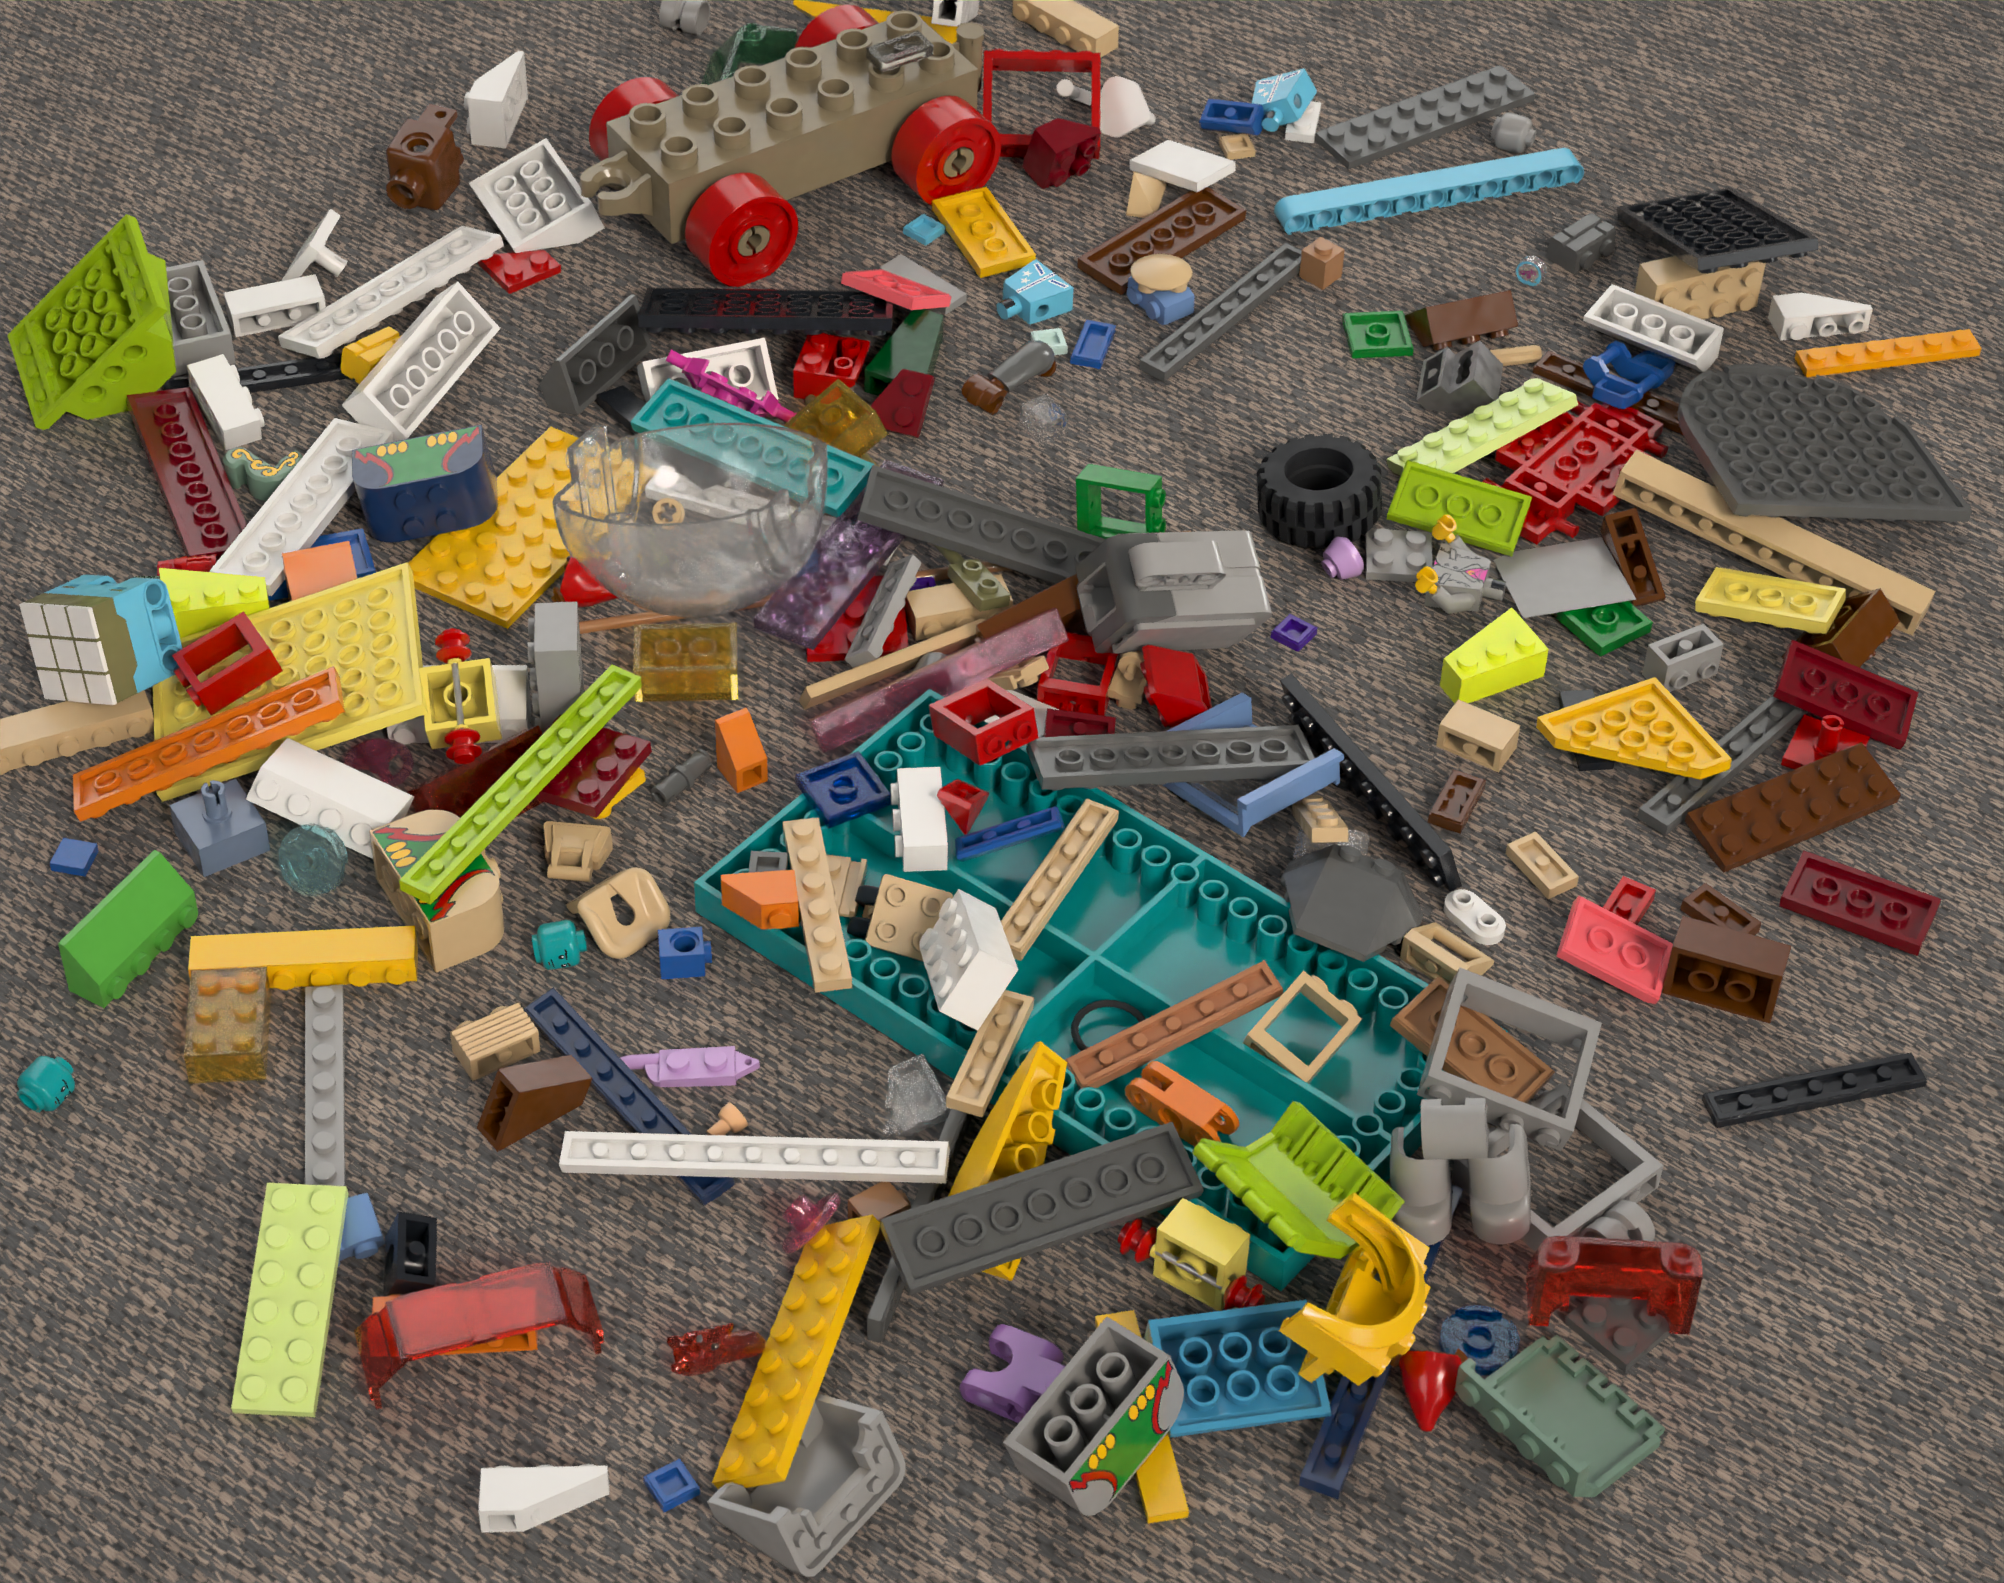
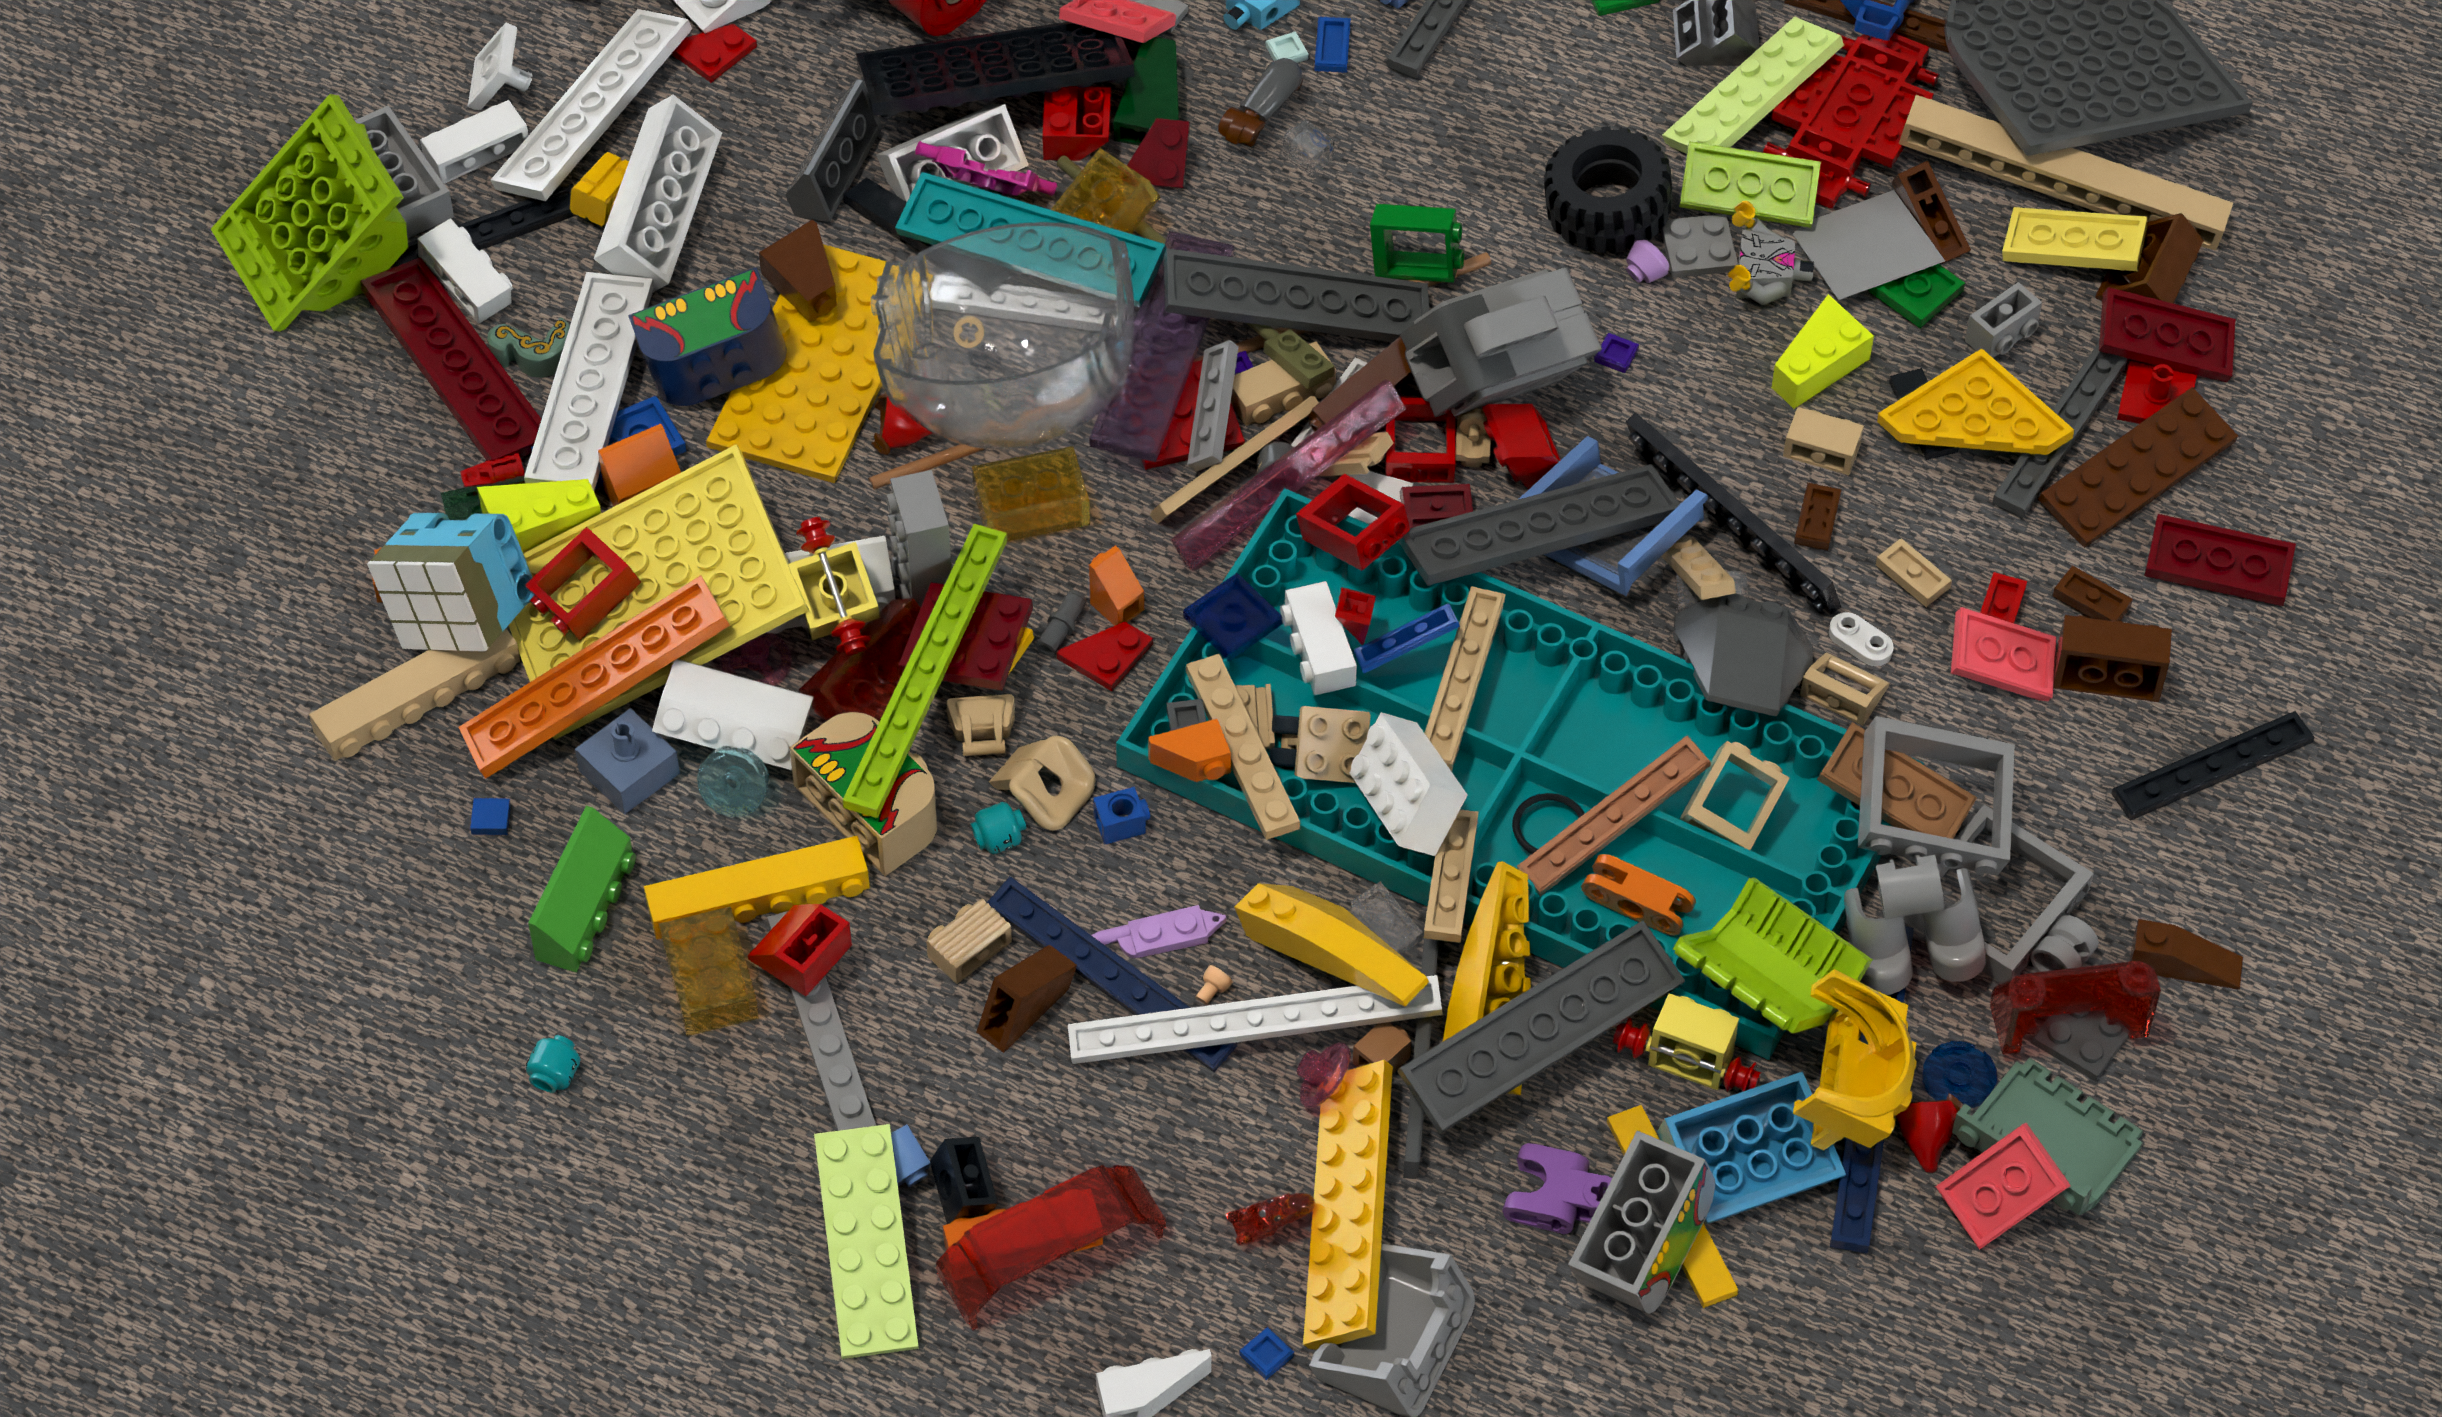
camera: 10 degrees left, 10 degrees up
(326, 1015) = (803, 946): none -> red slope
(531, 444) = (801, 271): none -> reddish brown slope
(718, 812) = (1107, 654): none -> red wing
(847, 1094) = (1327, 940): none -> yellow wedge
(1495, 1449) = (2003, 1185): none -> coral tile
(1746, 1264) = (2184, 955): none -> reddish brown slope

